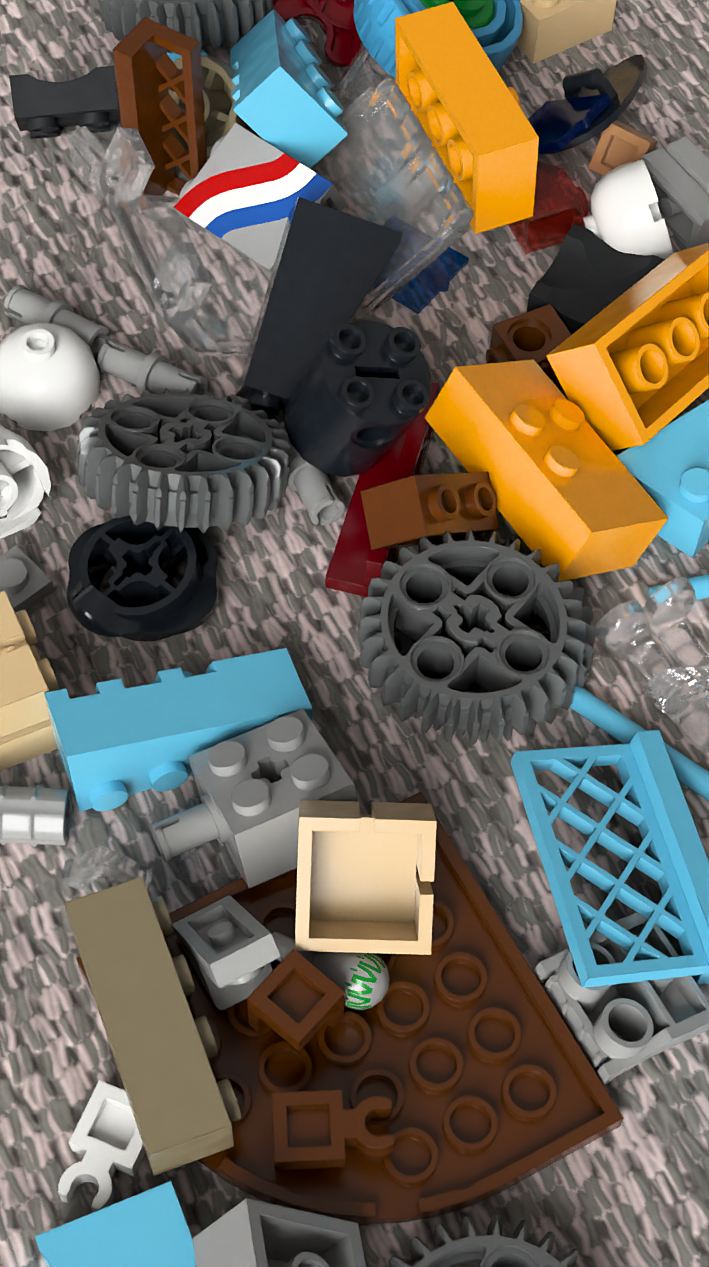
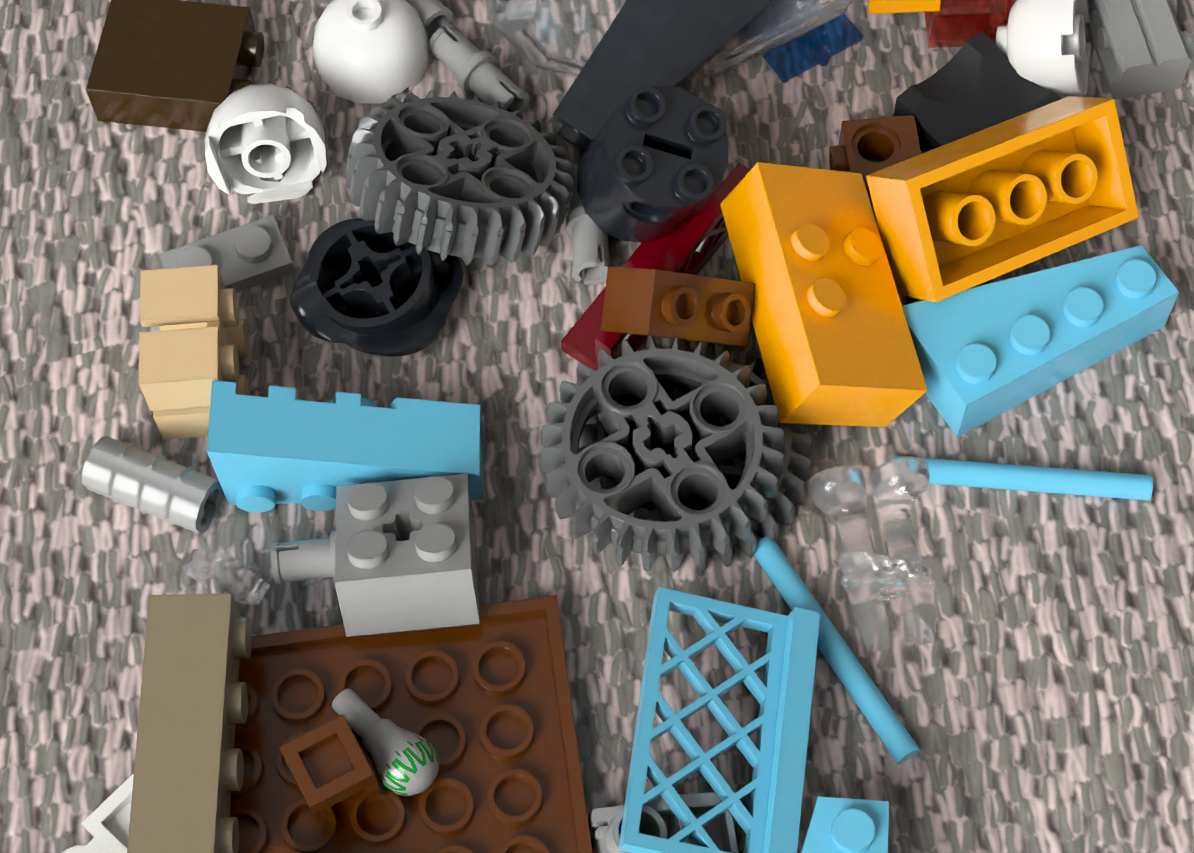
camera: 25 degrees right, 5 degrees up
(227, 950) = (291, 689): light grey slope -> none
(361, 878) = (441, 665): tan piece -> none

